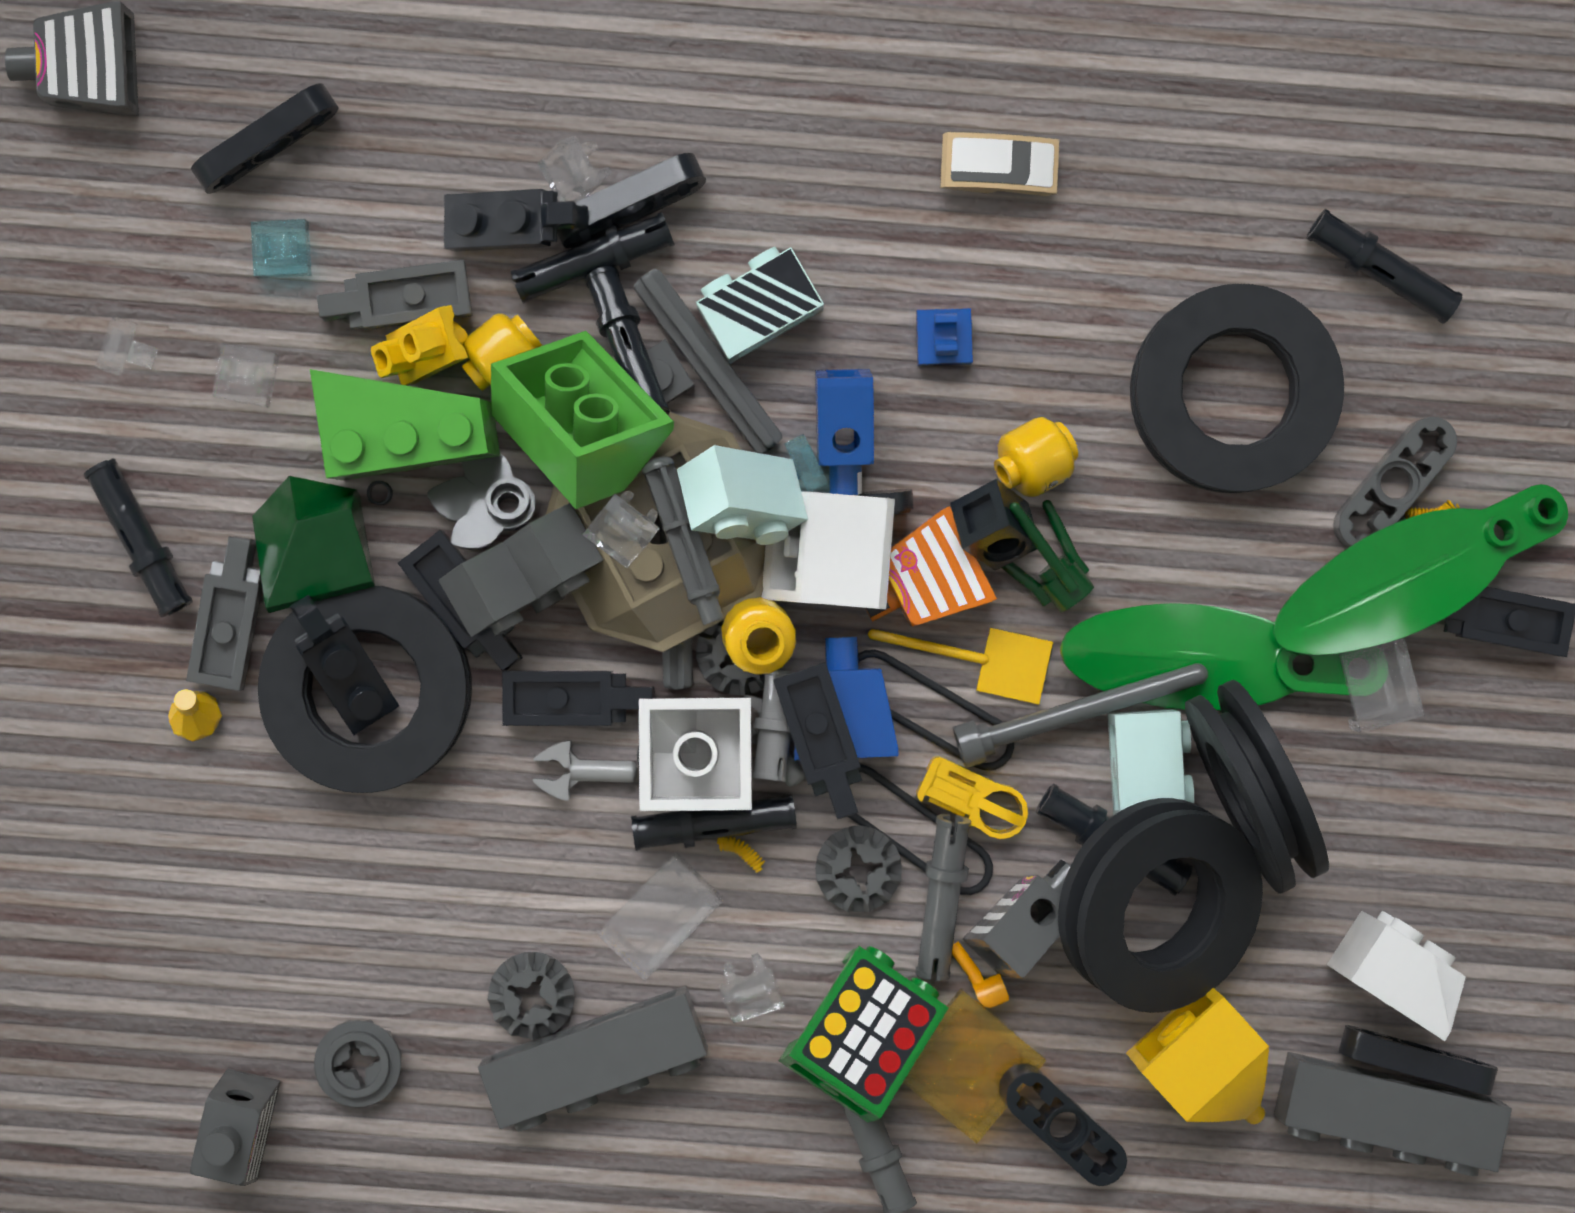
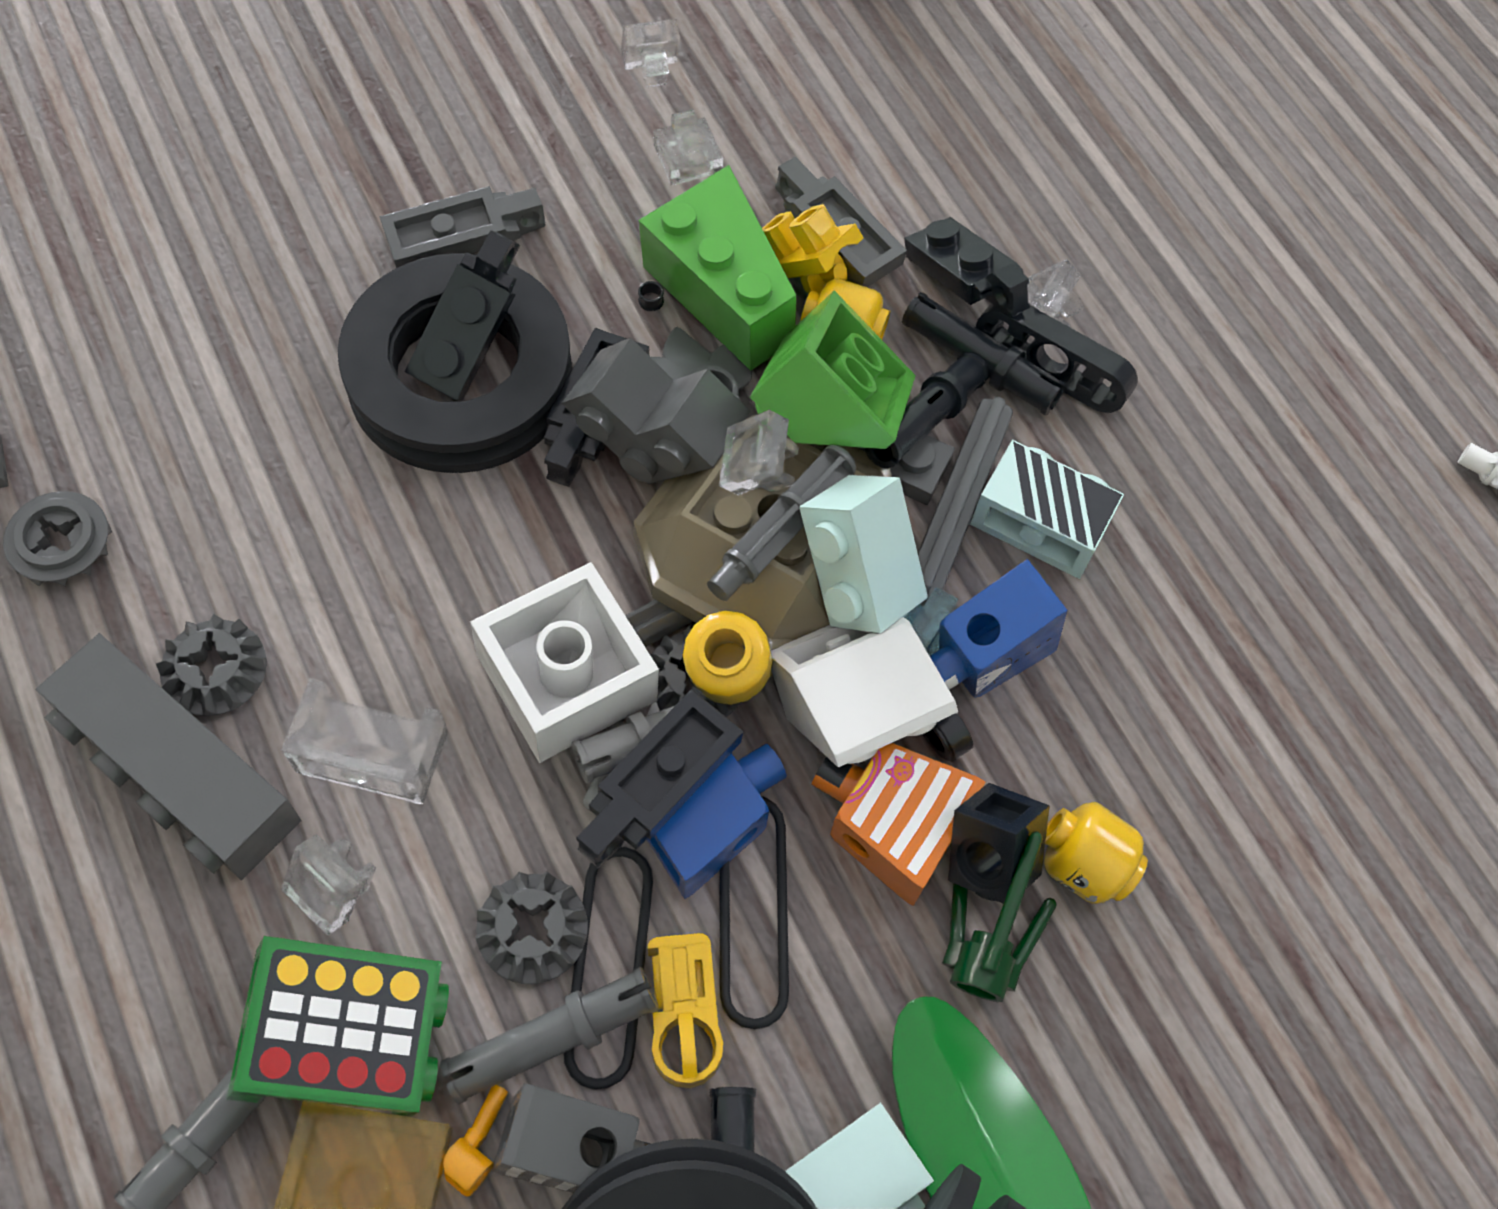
camera: 50 degrees right, 25 degrees down
(133, 529) = (478, 147): black pin -> none
(194, 714) = (351, 240): yellow rock -> none
(264, 138) = (936, 71): black beam -> none
(281, 248) = (814, 126): clear light blue tile -> none
(311, 543) = (577, 252): dark green slope -> none
(568, 698) = (545, 525): black hinge -> none
(581, 770) = (482, 588): light grey bar -> none
(711, 824) = (484, 722): black pin -> none
(730, 846) = (481, 804): yellow leg -> none
(944, 337) = (1140, 699): blue tile -> none
(980, 741) = (753, 972): dark grey piece -> none
(999, 163) = (1346, 656): slope -> none
(1010, 665) = (857, 966): yellow piece -> none
(1308, 360) = (1395, 979): black tyre -> none

